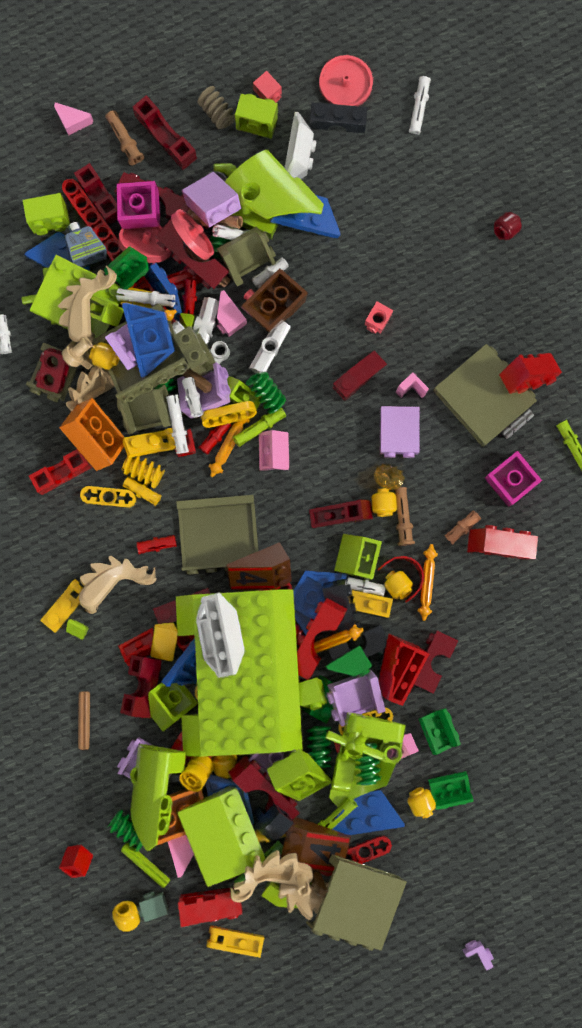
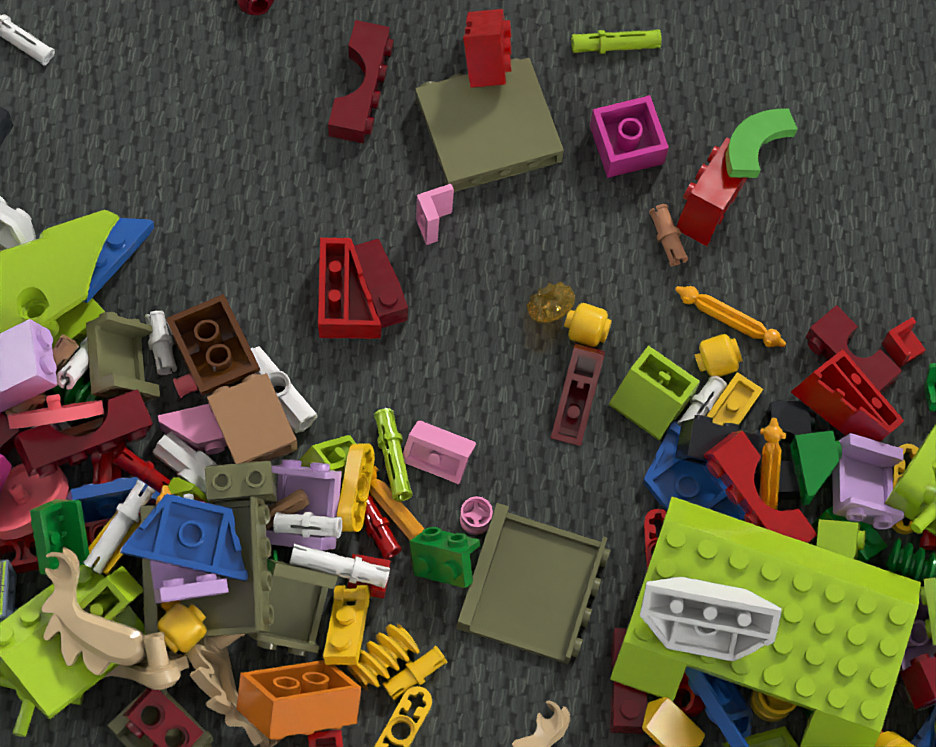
camera: 70 degrees left, 15 degrees down
(156, 544) = (509, 686): red pin -> none
(210, 478) = (443, 556): none -> green bracket
(223, 764) = (902, 718): yellow head -> none
(237, 340) = (252, 420): none -> medium nougat panel
(243, 483) = (477, 509): none -> bright pink wheel
(260, 570) = (621, 534): reddish brown slope -> none
(267, 390) = (345, 419): green piece -> none
(341, 356) = (343, 295): none -> red wedge
(378, 310) = (301, 208): coral brick -> none
(399, 431) = (489, 260): lavender brick -> none
(402, 527) = (634, 312): medium nougat pin -> none
(418, 567) = (714, 317): red piece -> none
(454, 689) = (903, 344): none -> red panel
(455, 315) = (352, 113): none -> dark red arch
(517, 424) = (550, 100): light grey axle -> none
(545, 550) = (751, 135): none -> bright green tile

